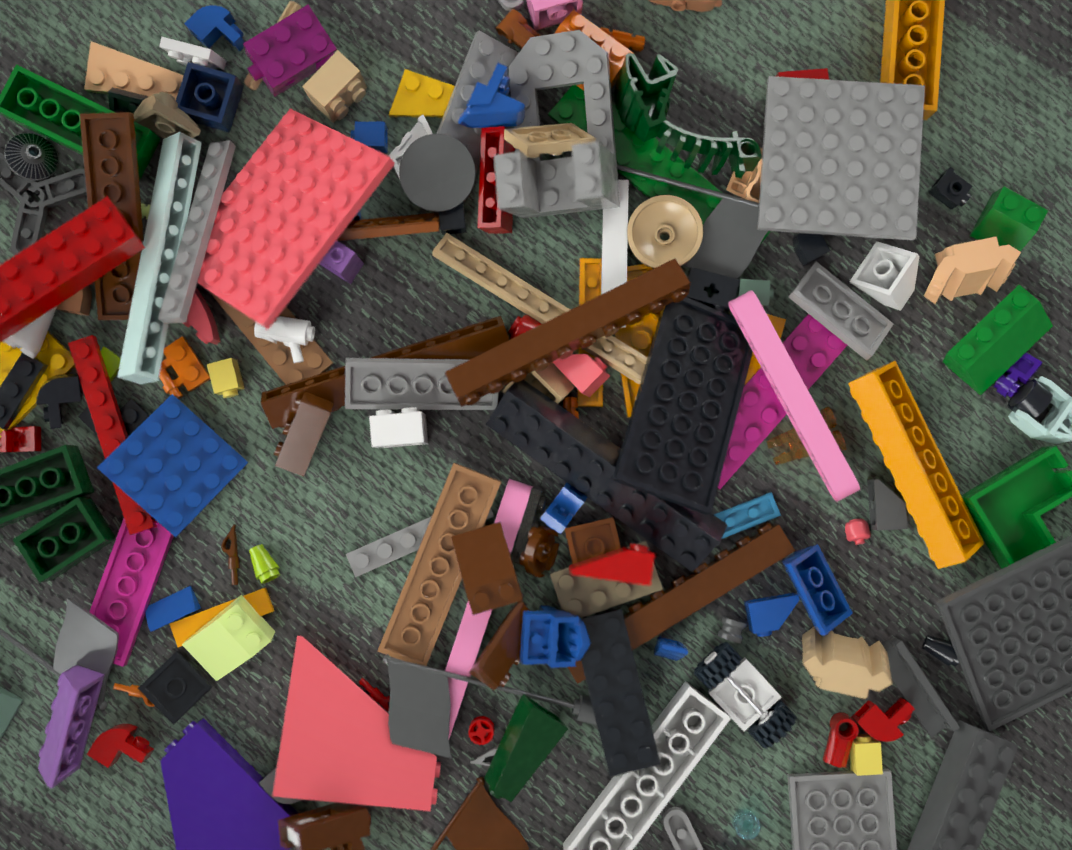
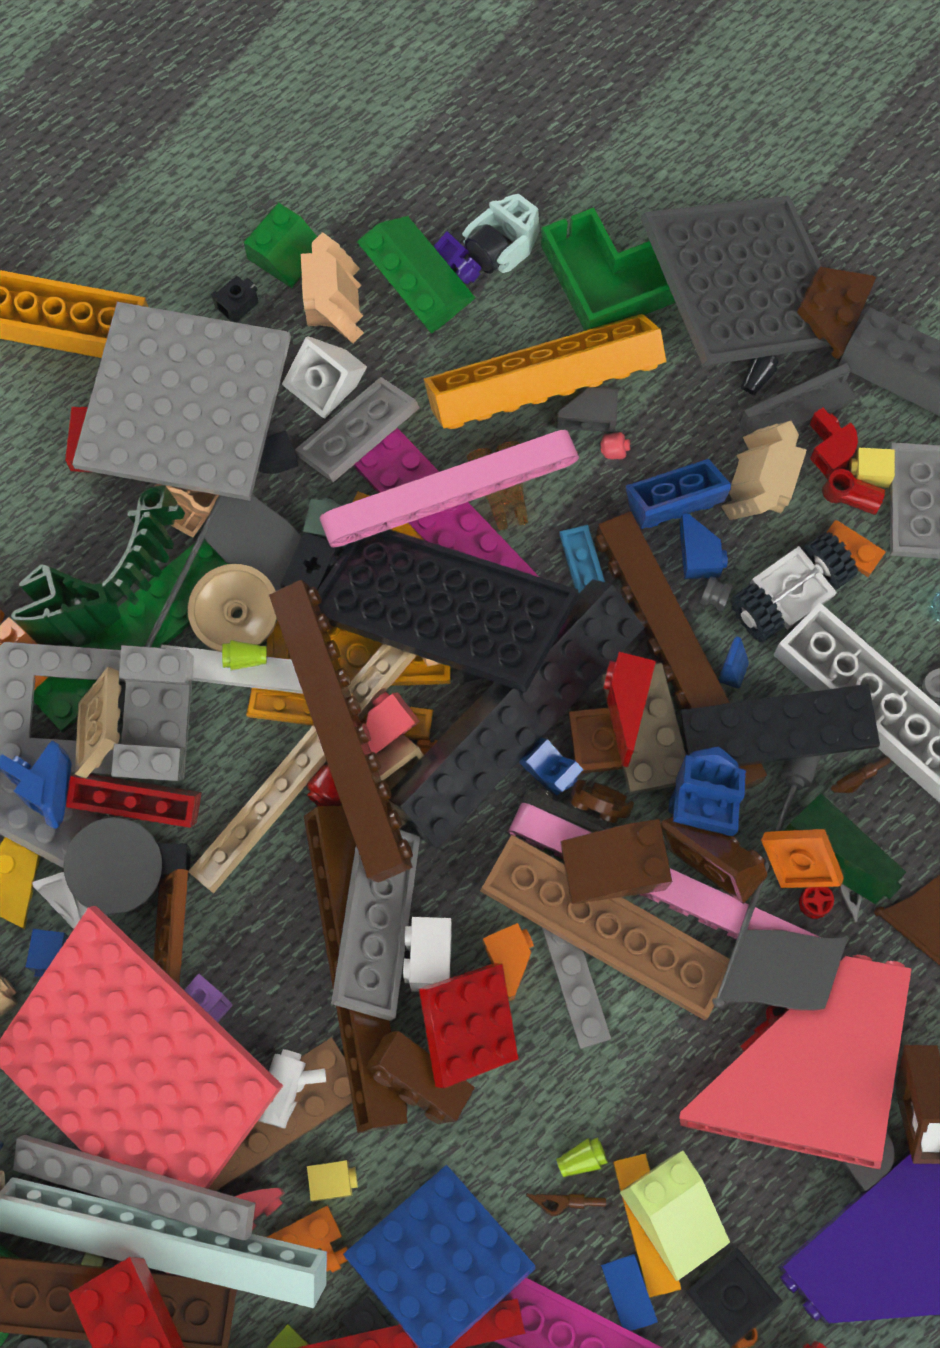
camera: 80 degrees left, 15 degrees down
(345, 466) = (468, 1025): none -> red plate
(408, 492) = (512, 950): none -> orange slope
(508, 718) = (802, 858): none -> orange plate
(586, 755) = (852, 781): none -> reddish brown hand
(623, 246) = (243, 655): none -> lime cone
(788, 748) = (863, 551): none -> orange plate
(1017, 713) = (835, 304): none -> reddish brown wing

